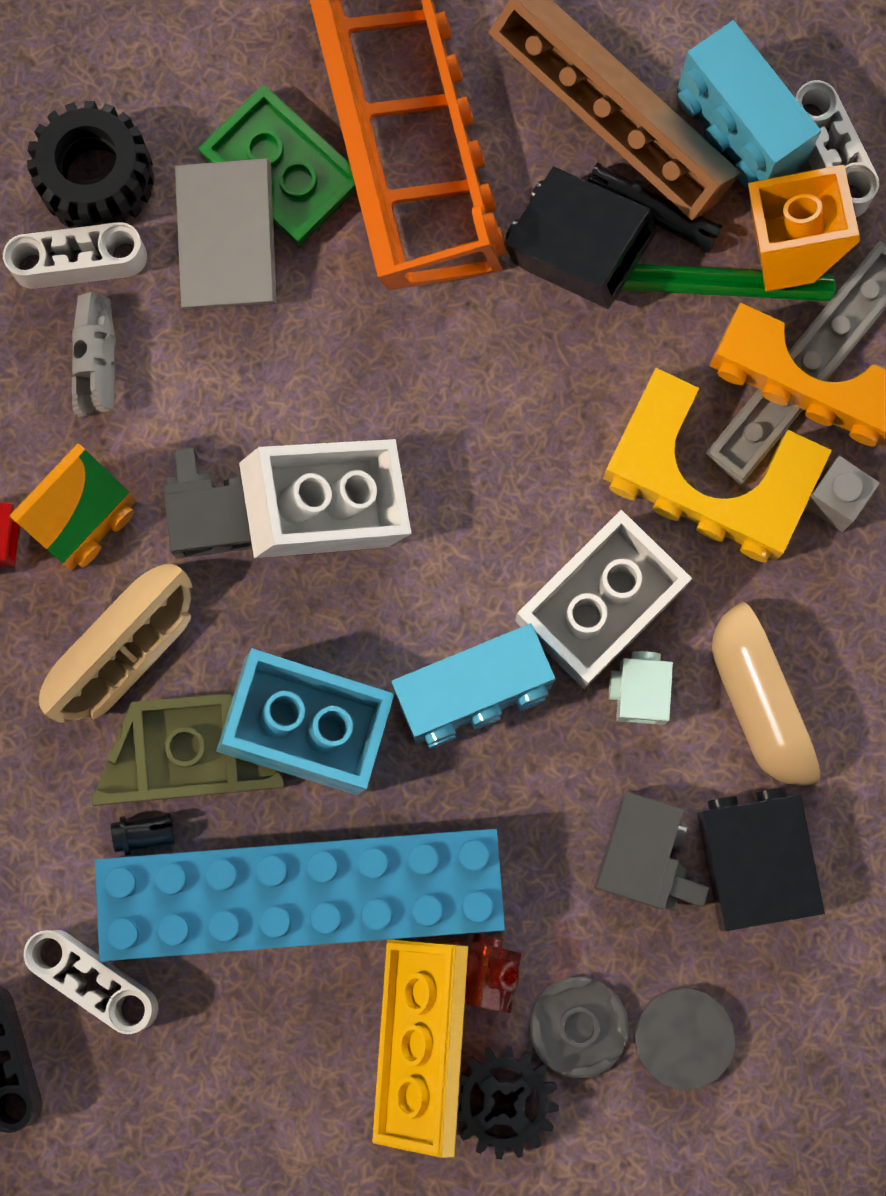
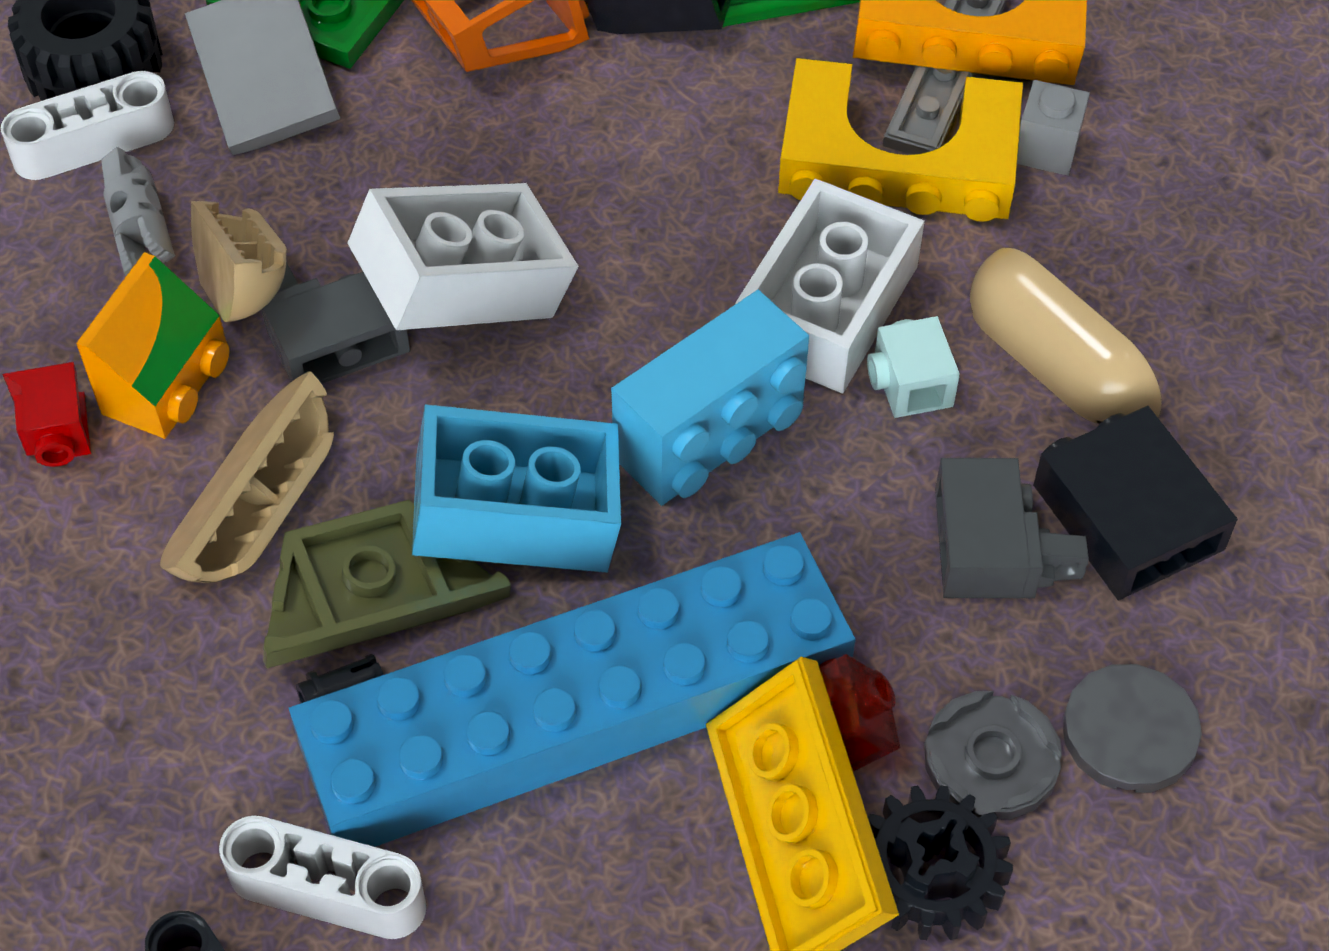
camera: 20 degrees left, 25 degrees down
(157, 443) = (236, 259): none -> tan brick

